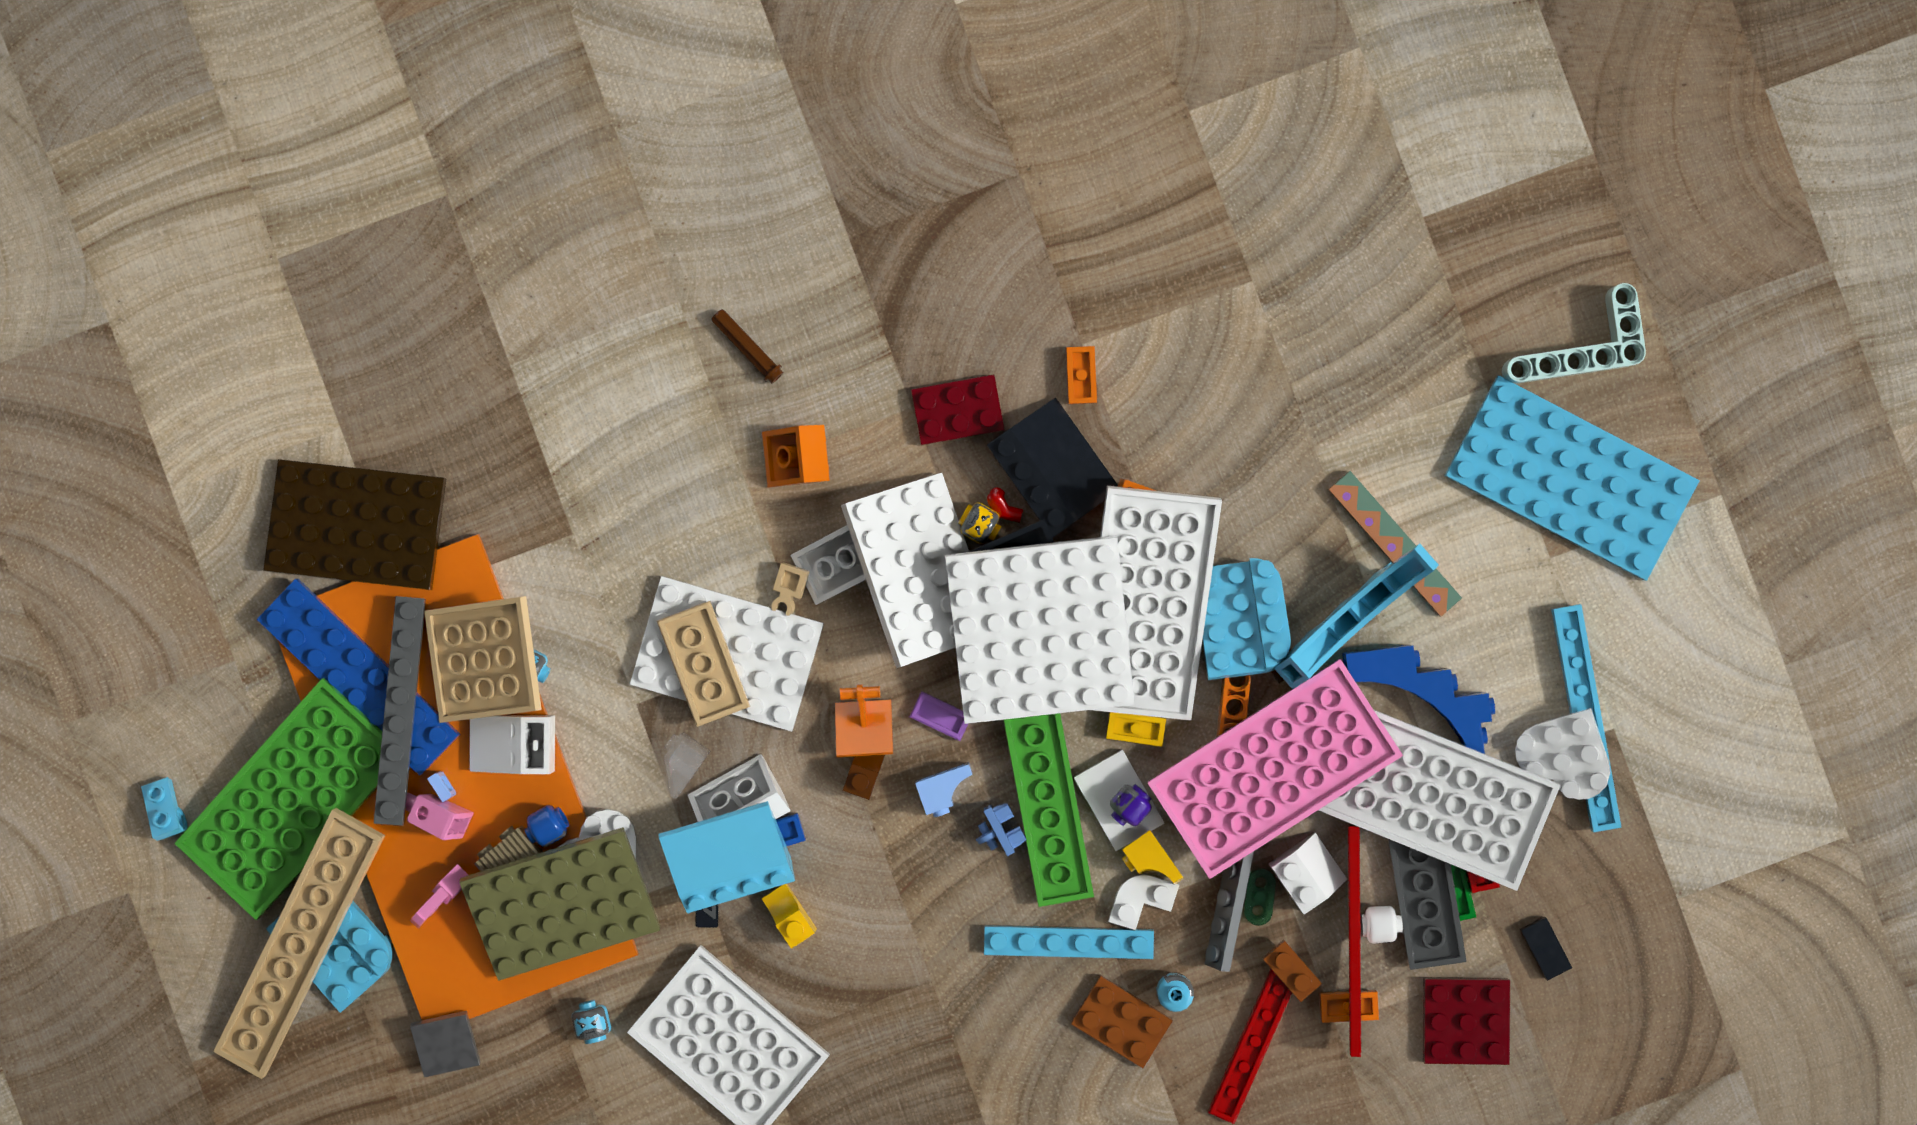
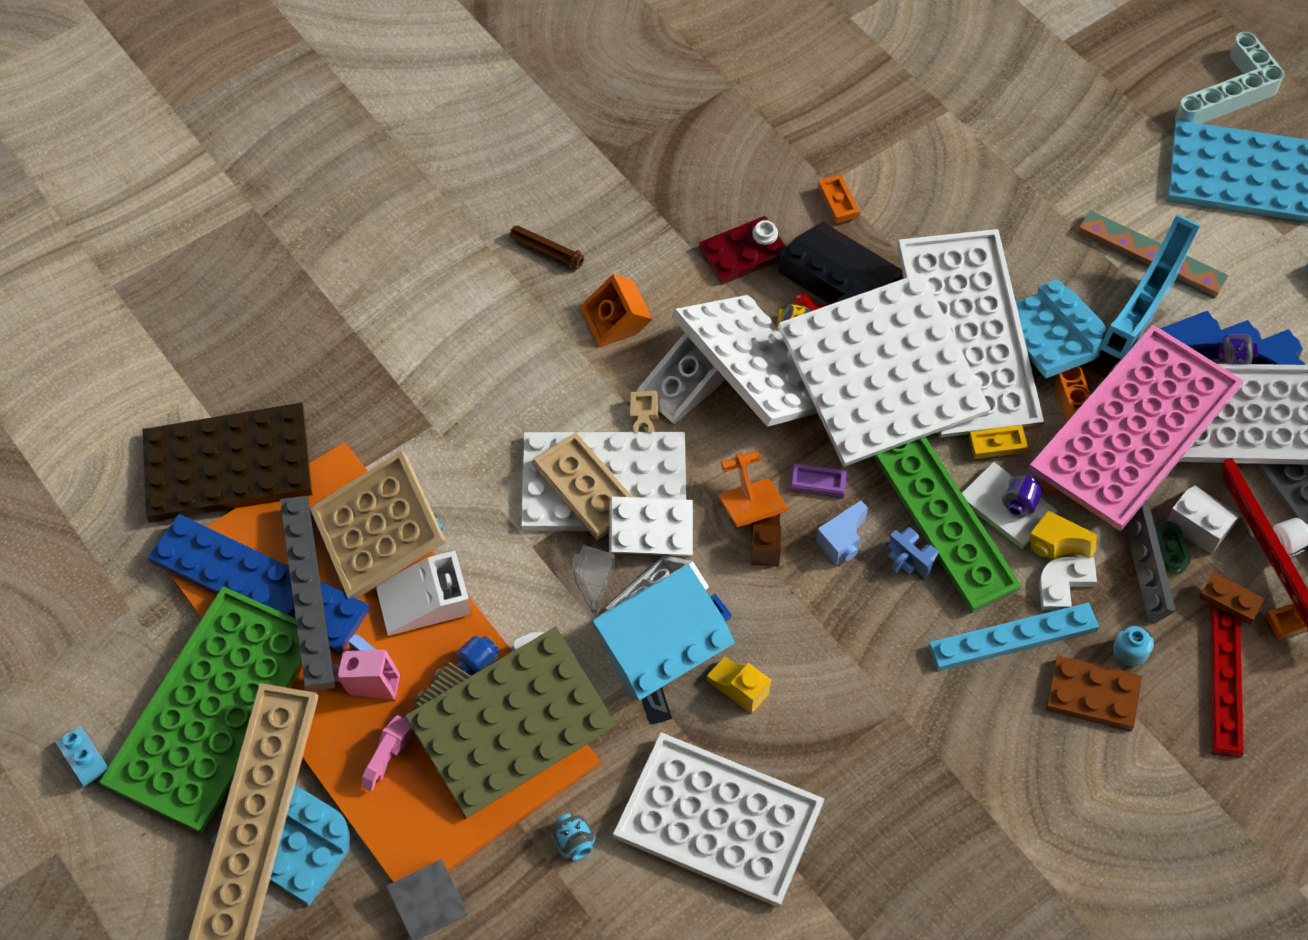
camera: 15 degrees left, 30 degrees down
(753, 730) = (651, 526): none -> white plate
(982, 407) = (765, 232): none -> white plate
(1418, 708) = (1237, 349): none -> head

